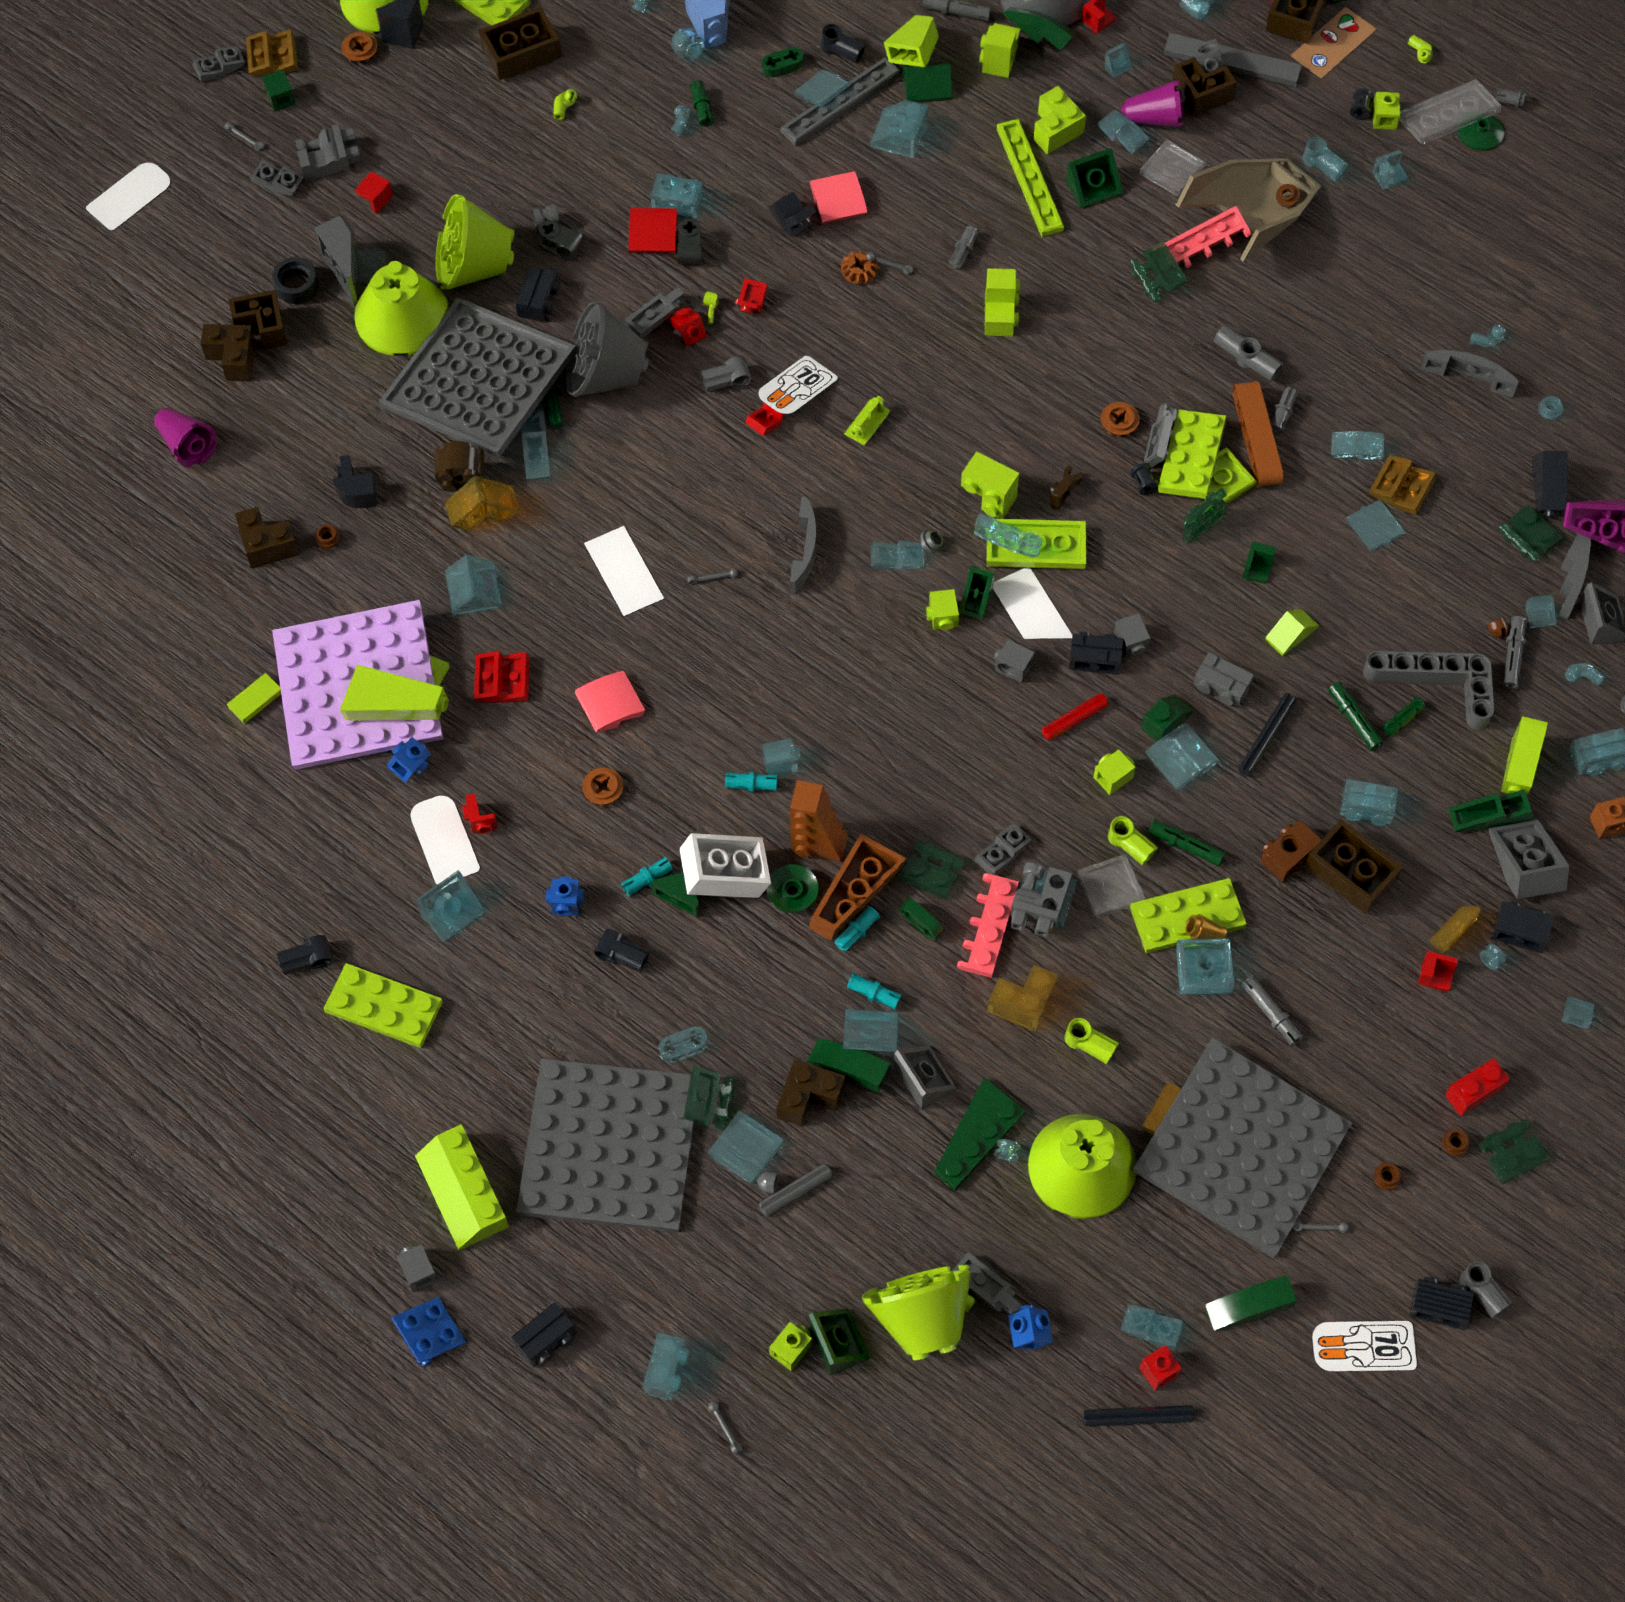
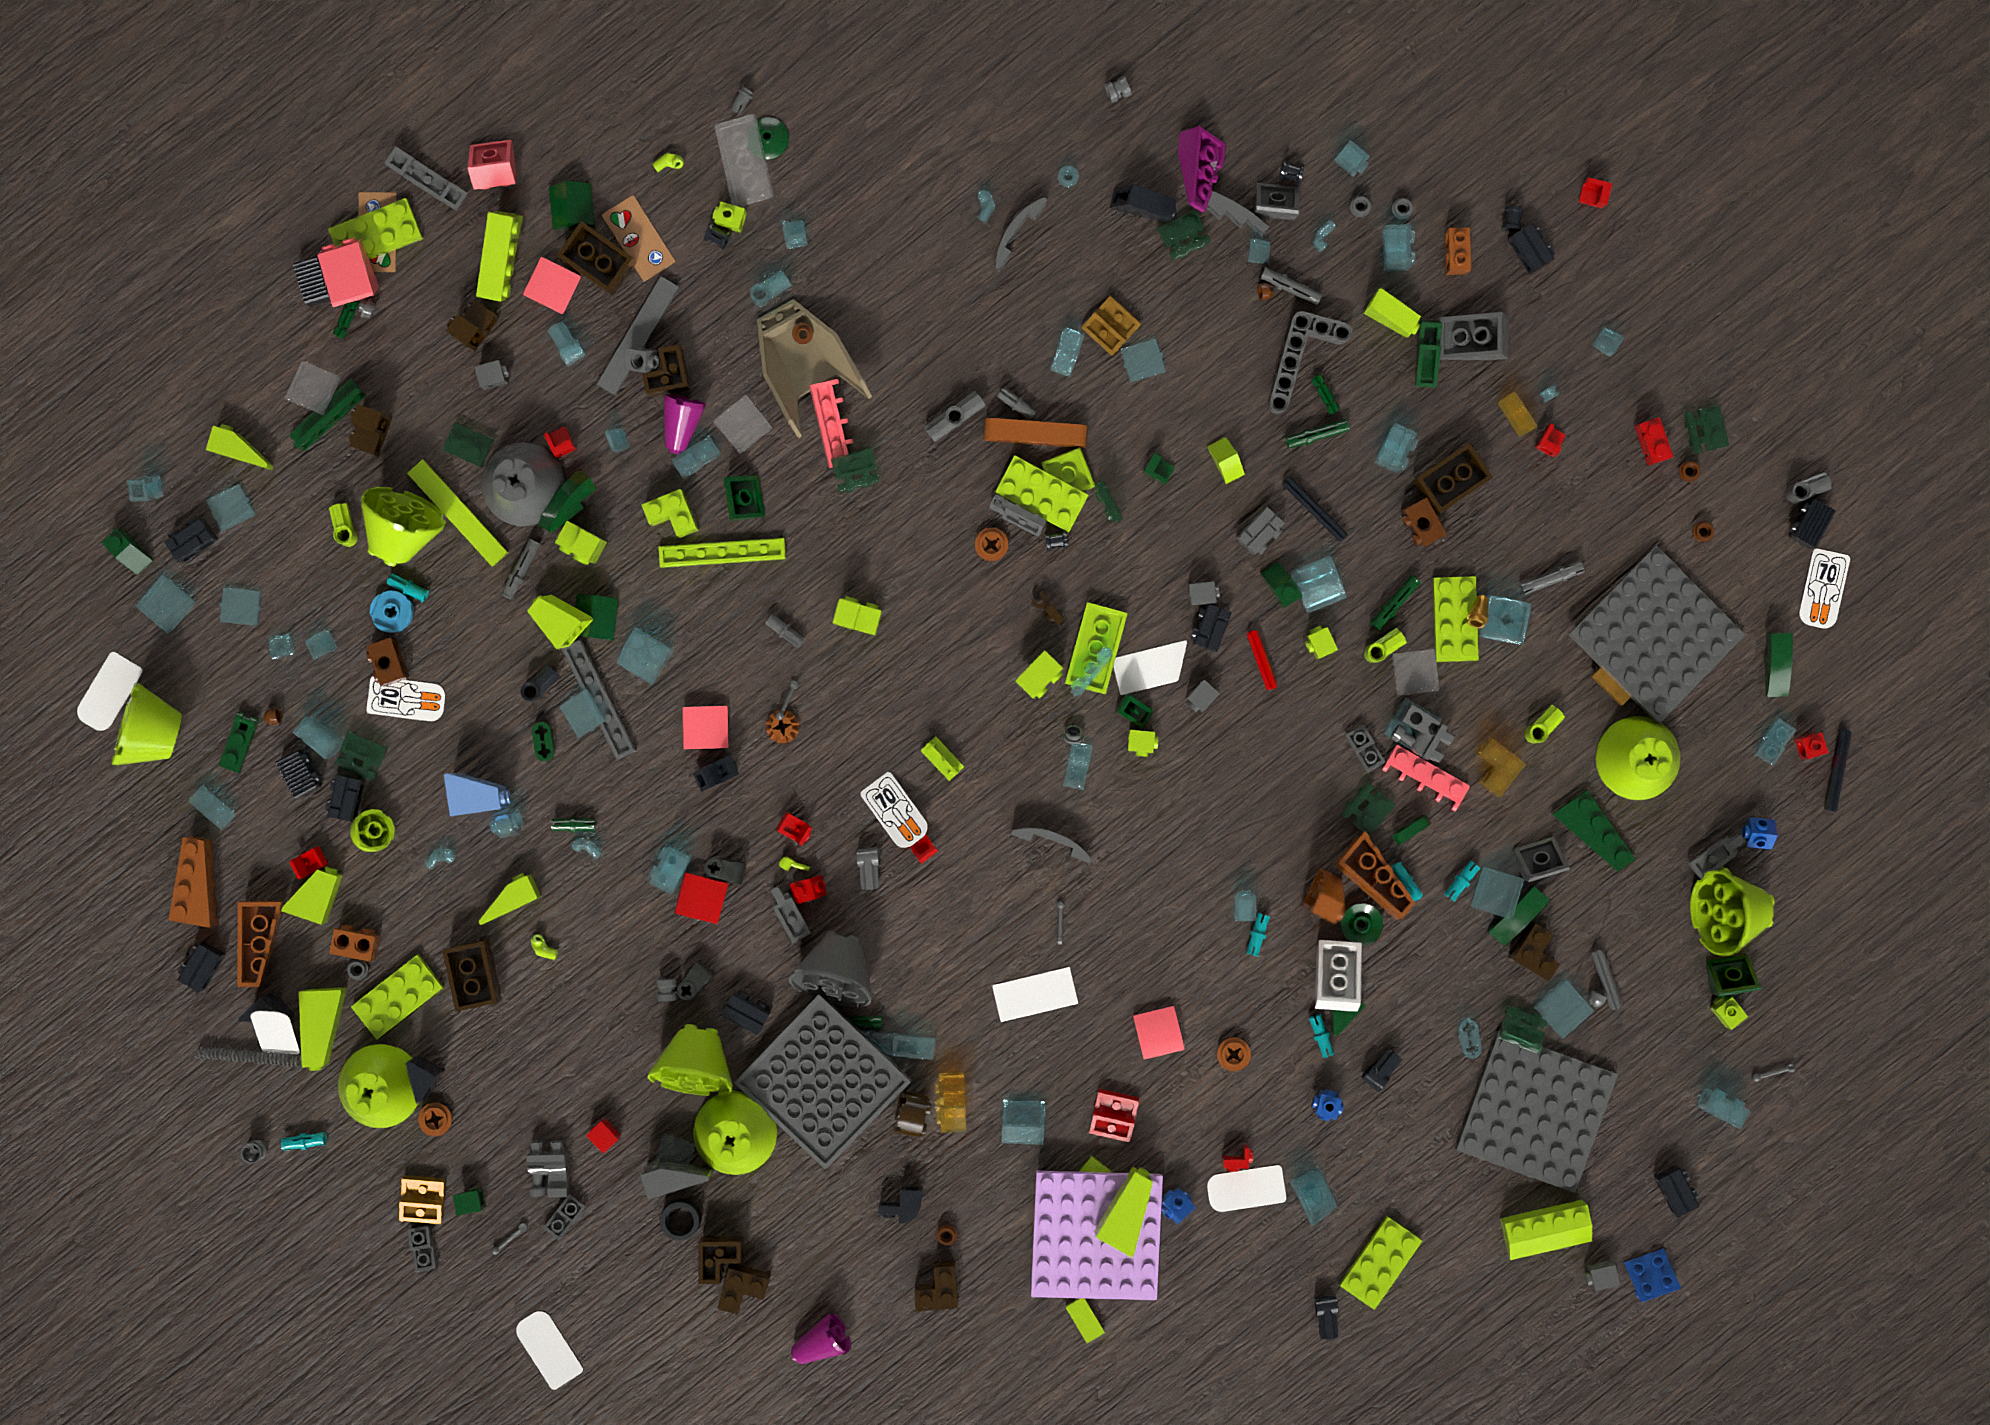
camera: 80 degrees left, 25 degrees up
(610, 64) = (514, 895): none -> lime slope
(1007, 1150) = (1616, 812): clear light blue bush -> none
(1298, 1226) = (1733, 576): dark grey hinge -> none
(1522, 927) = (1531, 361): black brick -> none

